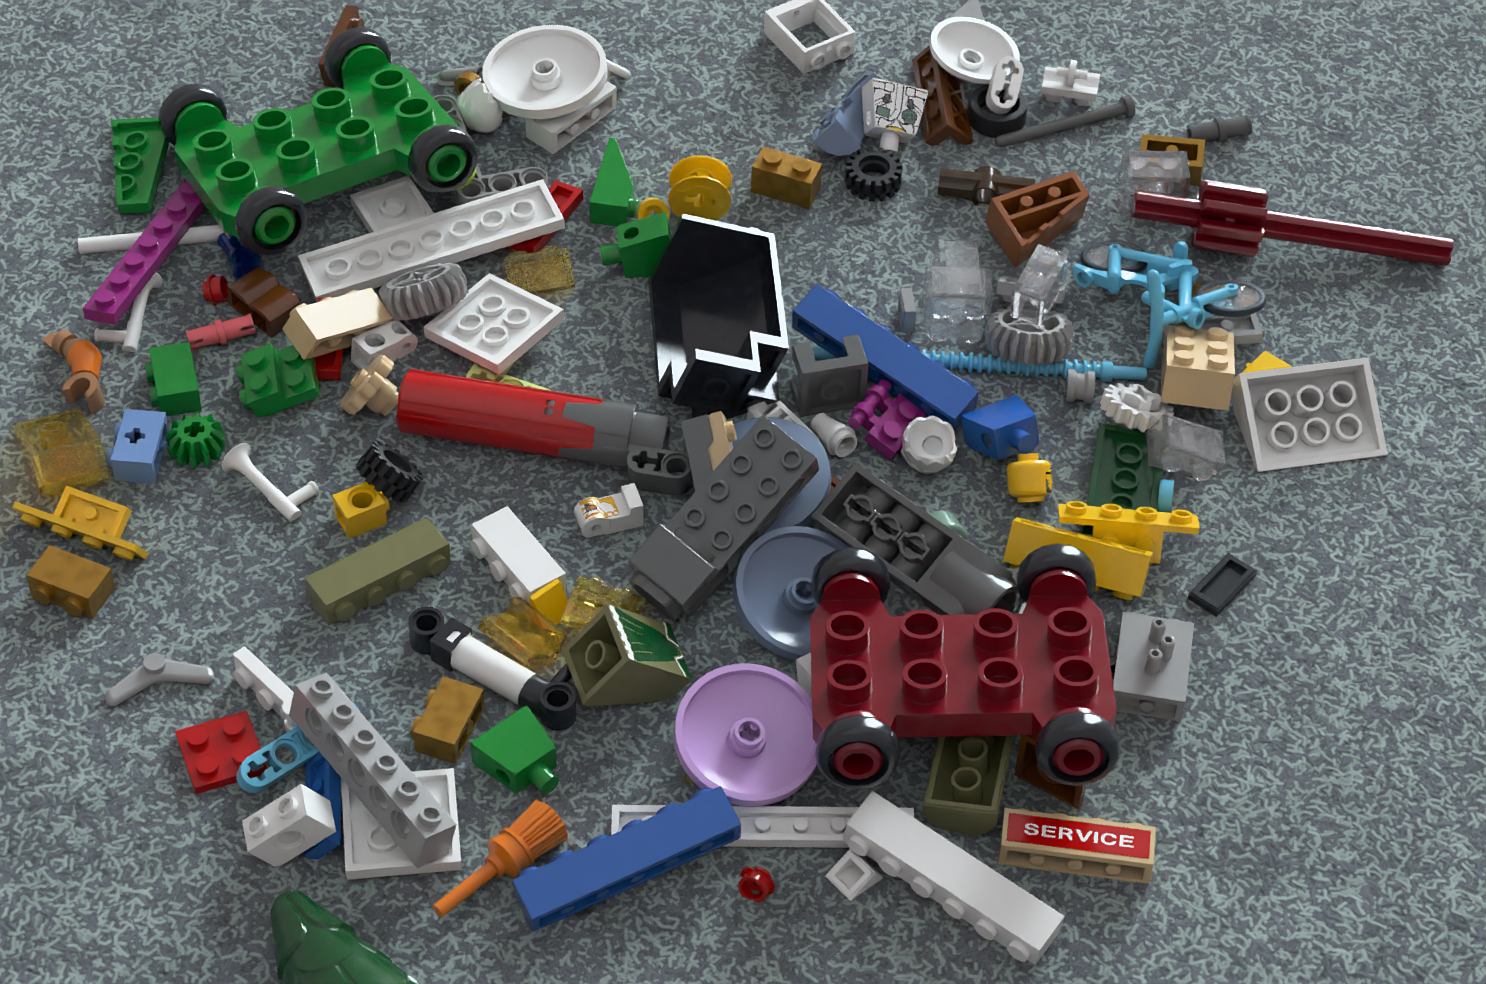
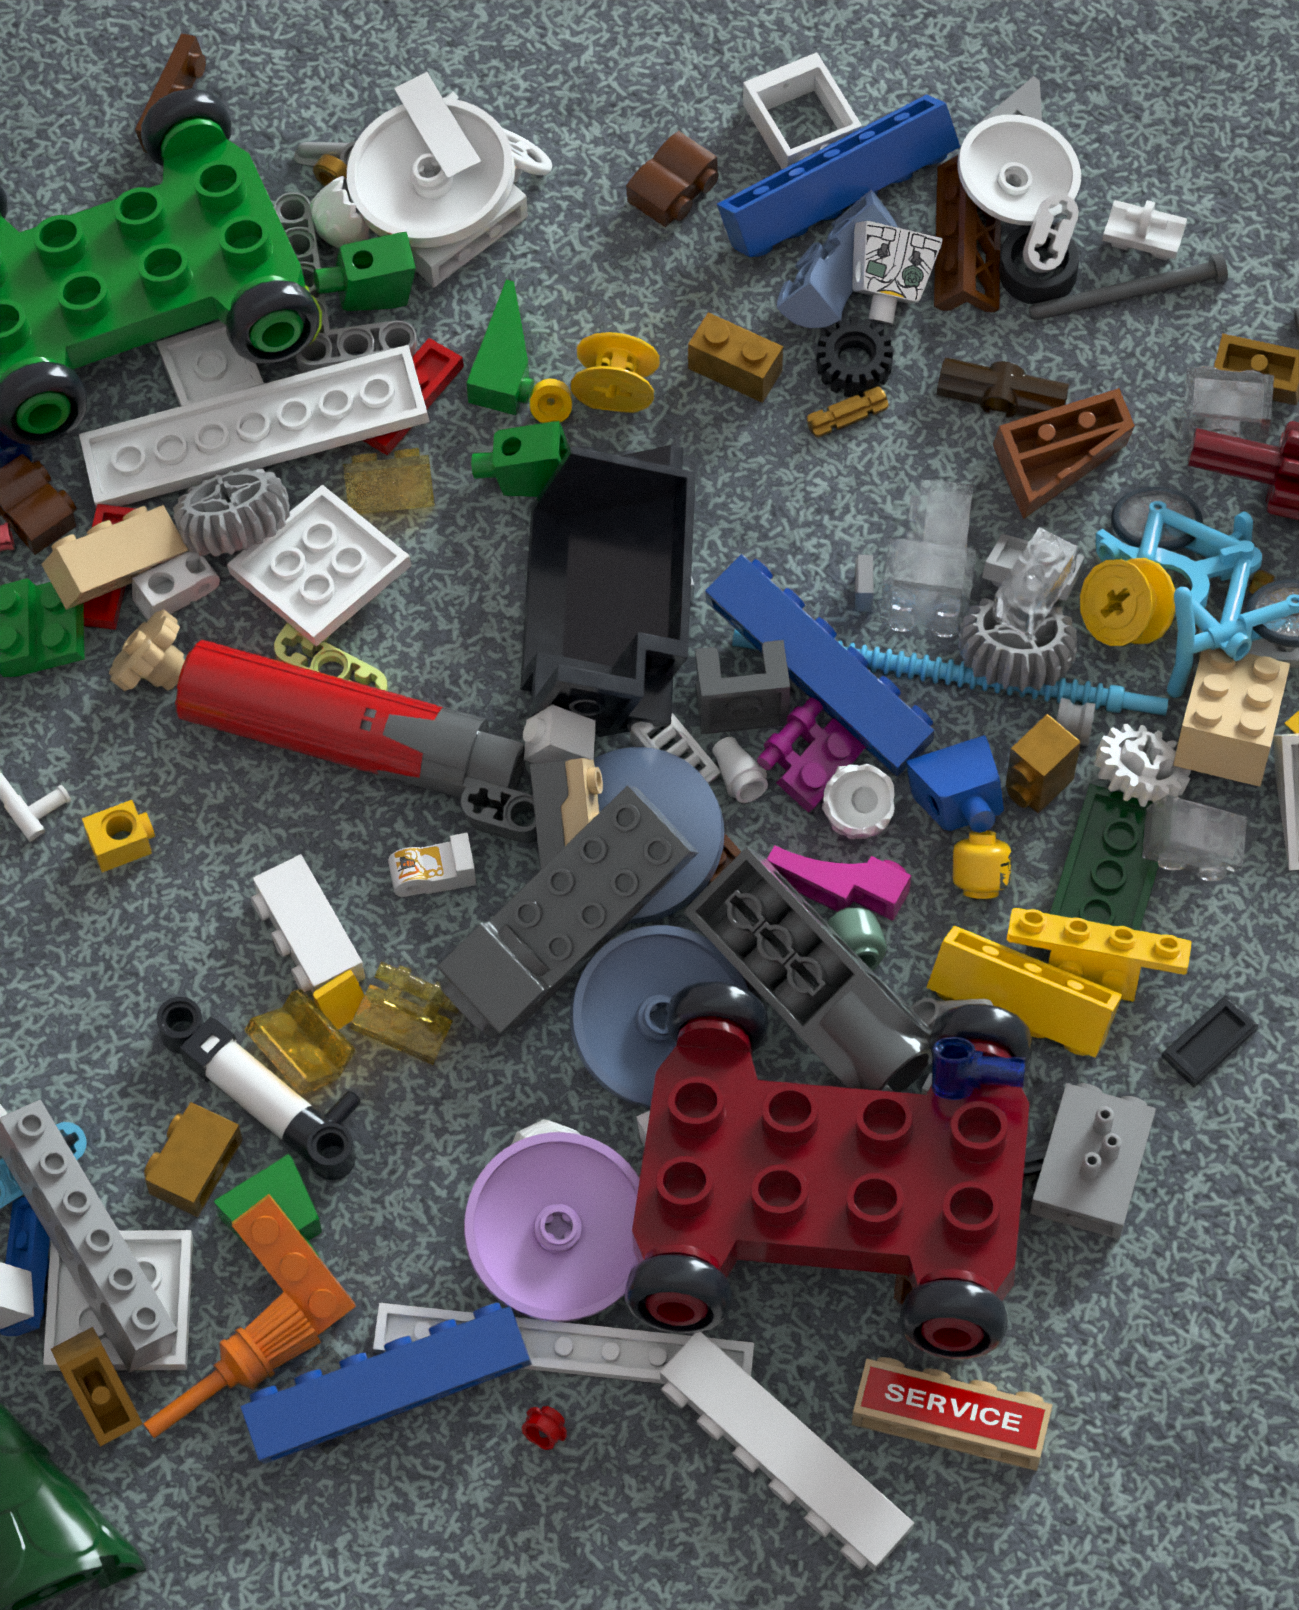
camera: 10 degrees right, 15 degrees up
(378, 571) = (130, 932): olive brick -> none
(389, 471) = (158, 787): black tyre -> none
(393, 876) = (96, 1386): none -> pearl gold brick
(510, 138) = (370, 273): none -> green torso
(539, 777) = (293, 1264): none -> orange plate
(546, 40) = (437, 125): none -> white sticker
(625, 660) = (423, 1097): olive slope -> none
(691, 405) = (558, 736): none -> white brick
(721, 76) = (672, 179): none -> reddish brown brick
(842, 64) = (838, 176): none -> blue brick
(853, 875) = (667, 1426): white slope -> none
(874, 209) = (847, 412): none -> pearl gold axle
(947, 495) = (874, 884): none -> dark pink slope
(967, 782) = (825, 1320): olive brick -> none
(1048, 586) = (961, 1069): none -> clear blue pin
(1063, 408) = (1041, 764): none -> pearl gold brick
(1106, 303) = (1127, 601): none -> yellow piece
(1165, 495) = (1158, 903): medium azure tile -> none

